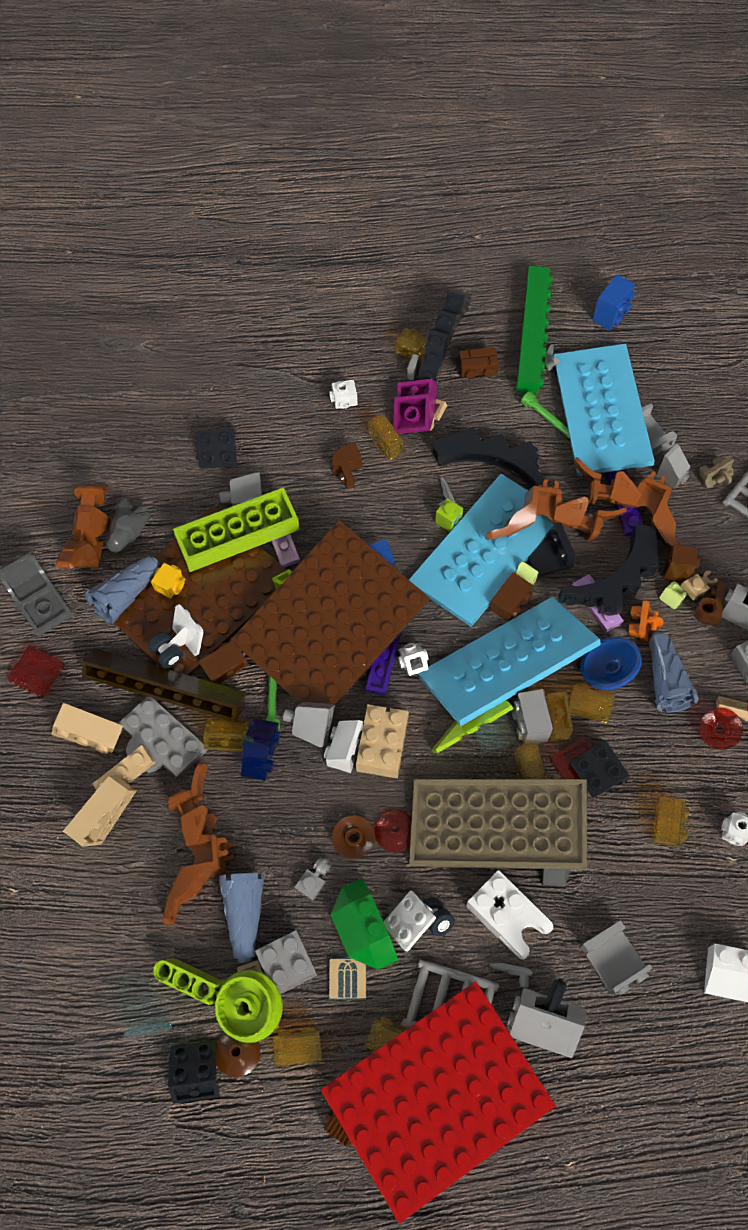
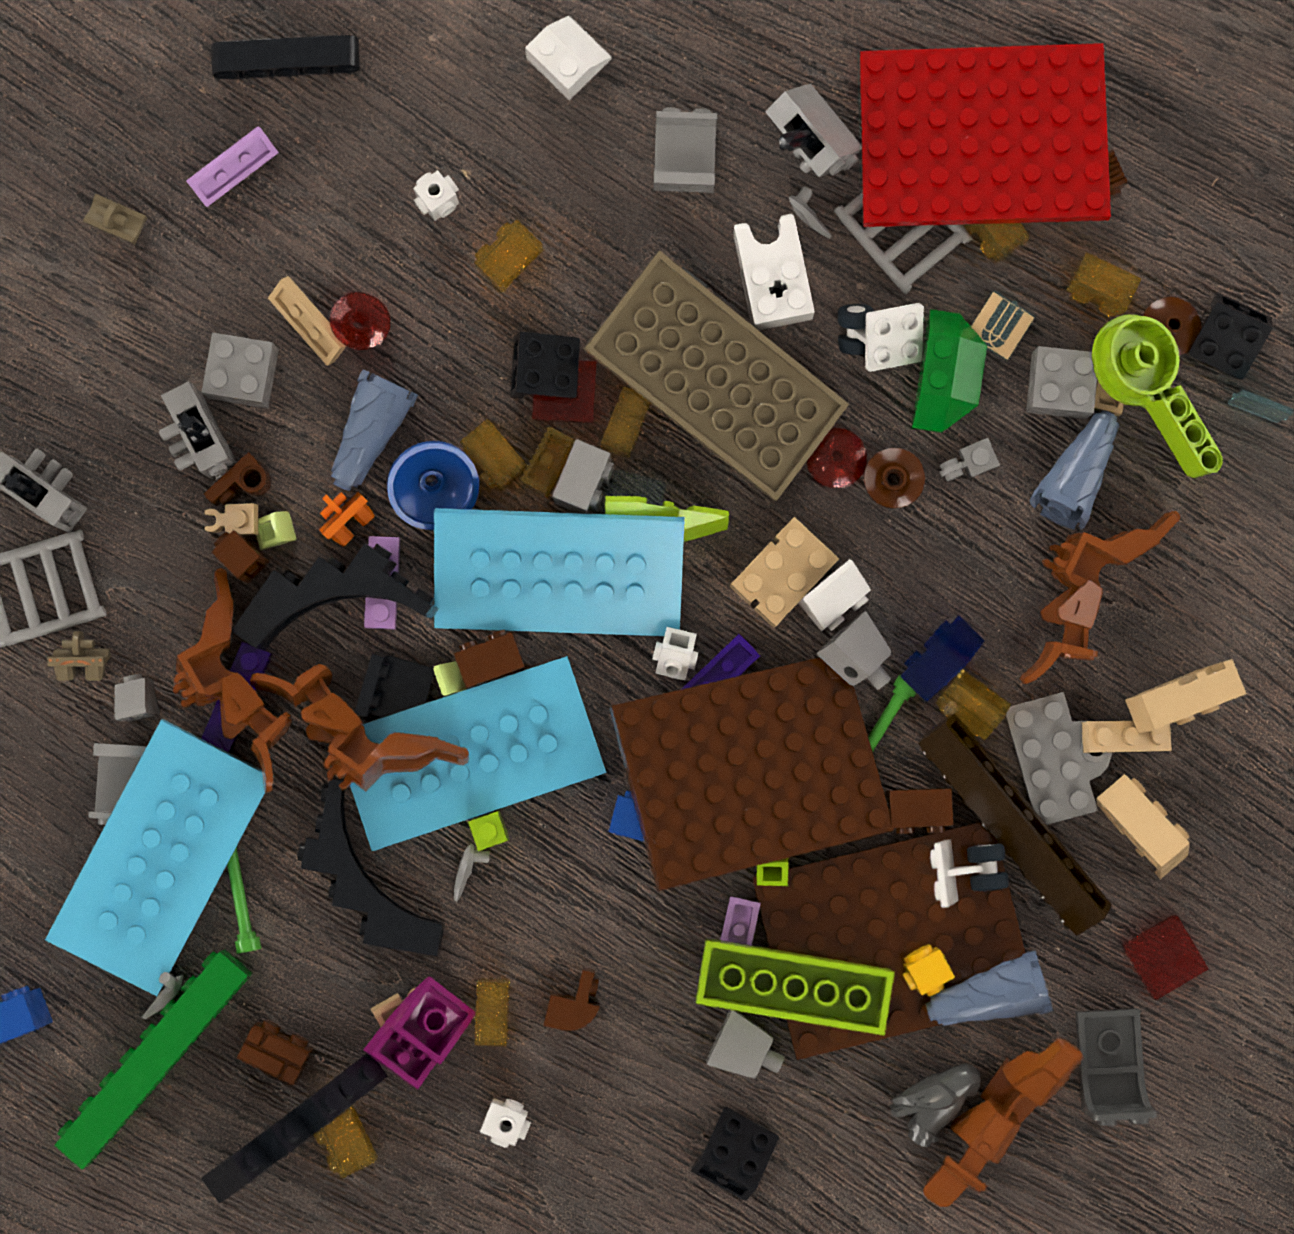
camera: 150 degrees left, 20 degrees up
(413, 367) = (374, 1106): light grey tile -> none

